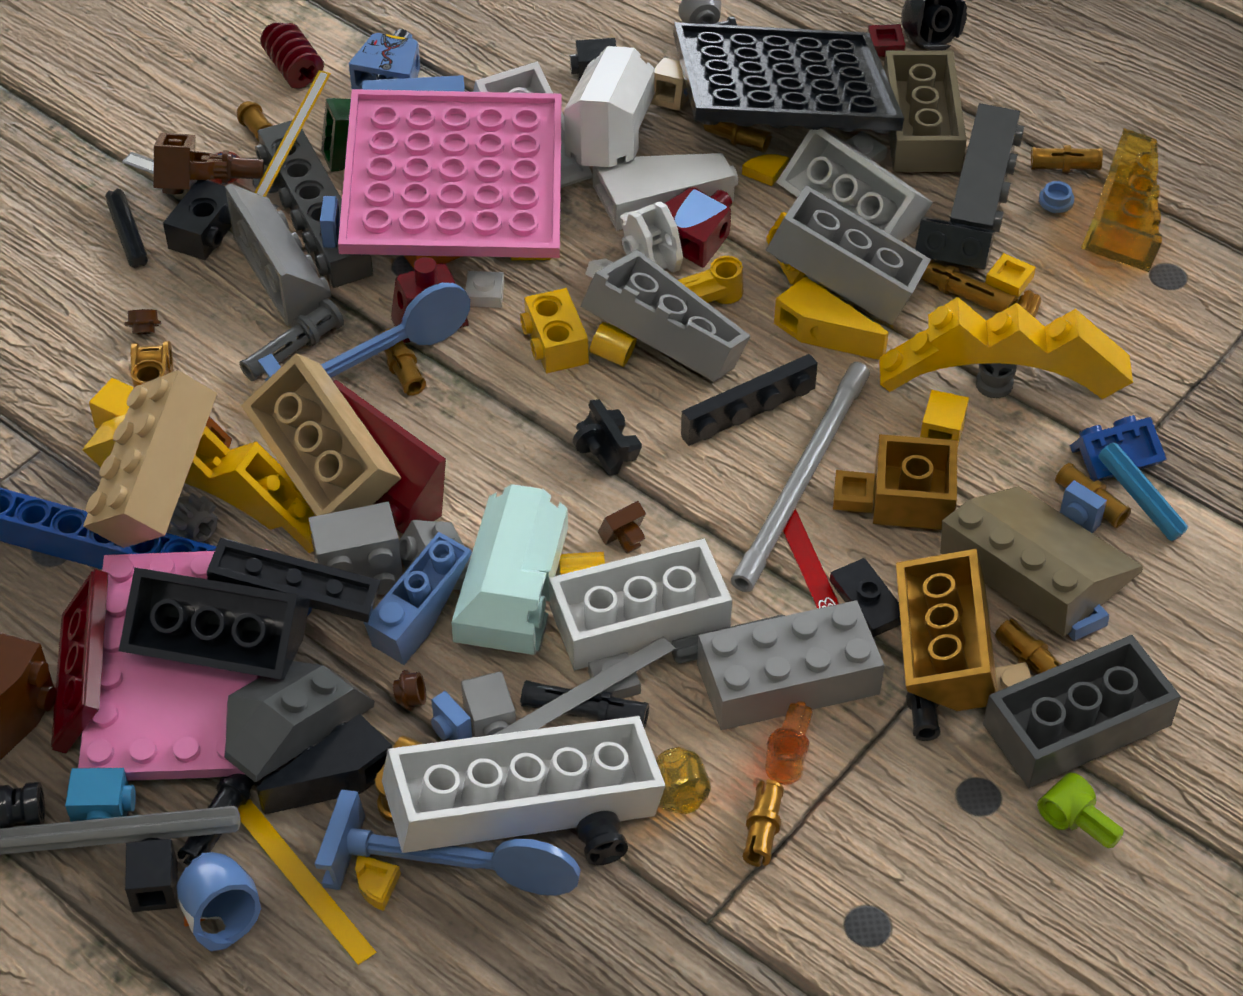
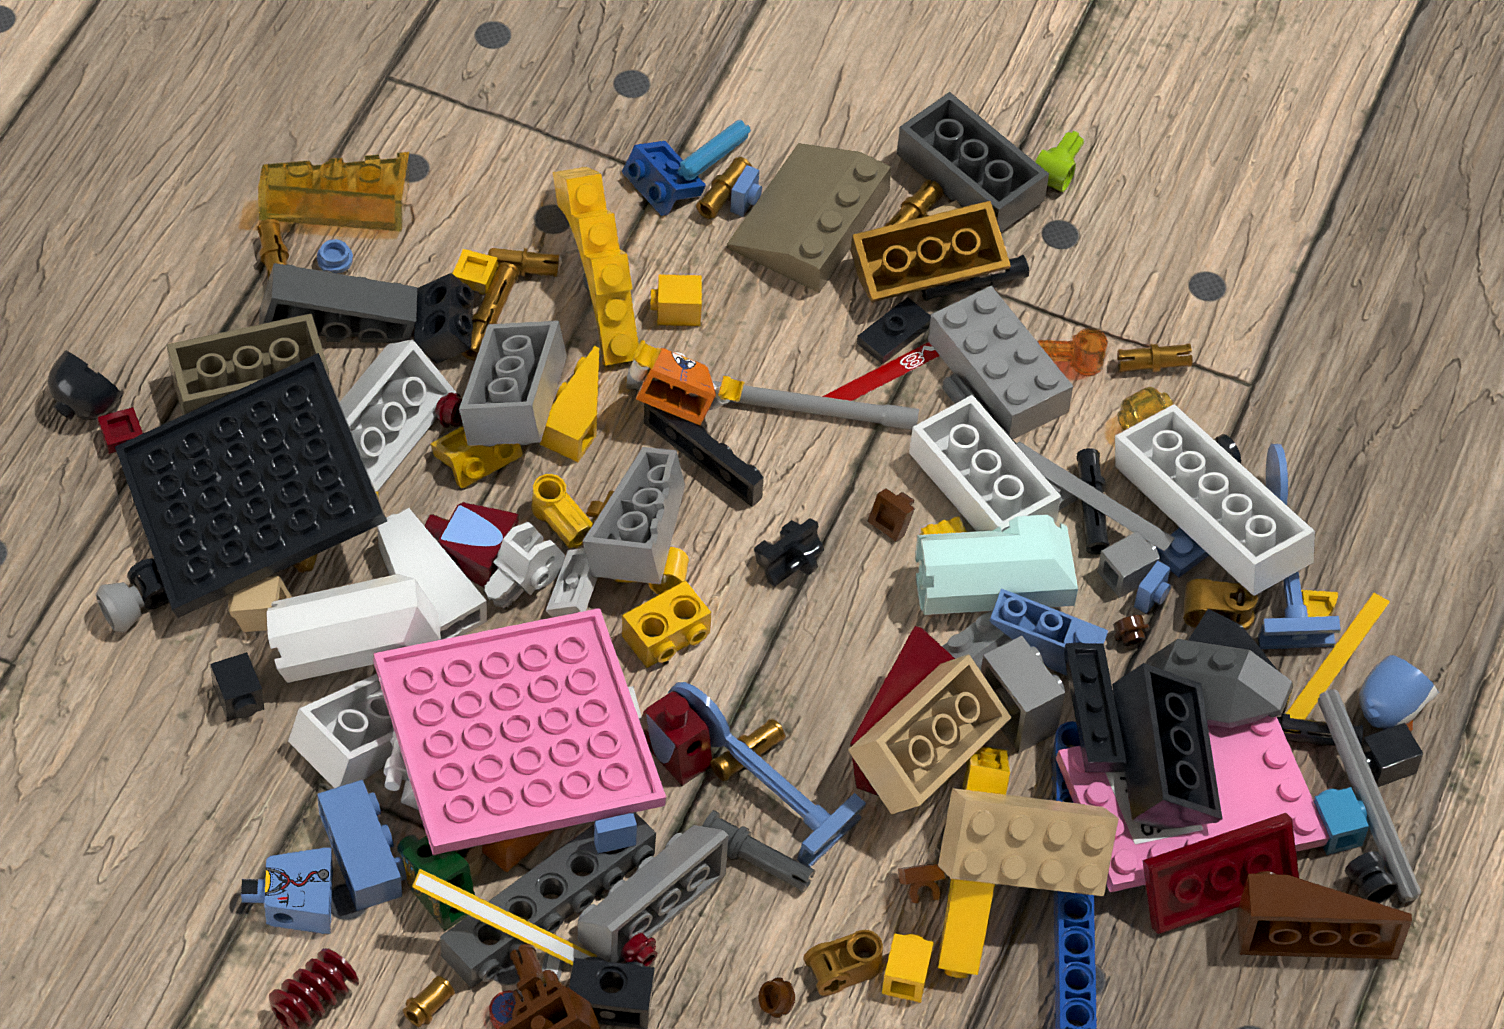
camera: 110 degrees left, 5 degrees up
(231, 244) = (640, 950): none -> dark red plate
(818, 367) = (679, 384): none -> orange torso
(853, 491) = (784, 355): pearl gold plate -> none
(914, 481) = (769, 303): pearl gold brick -> none

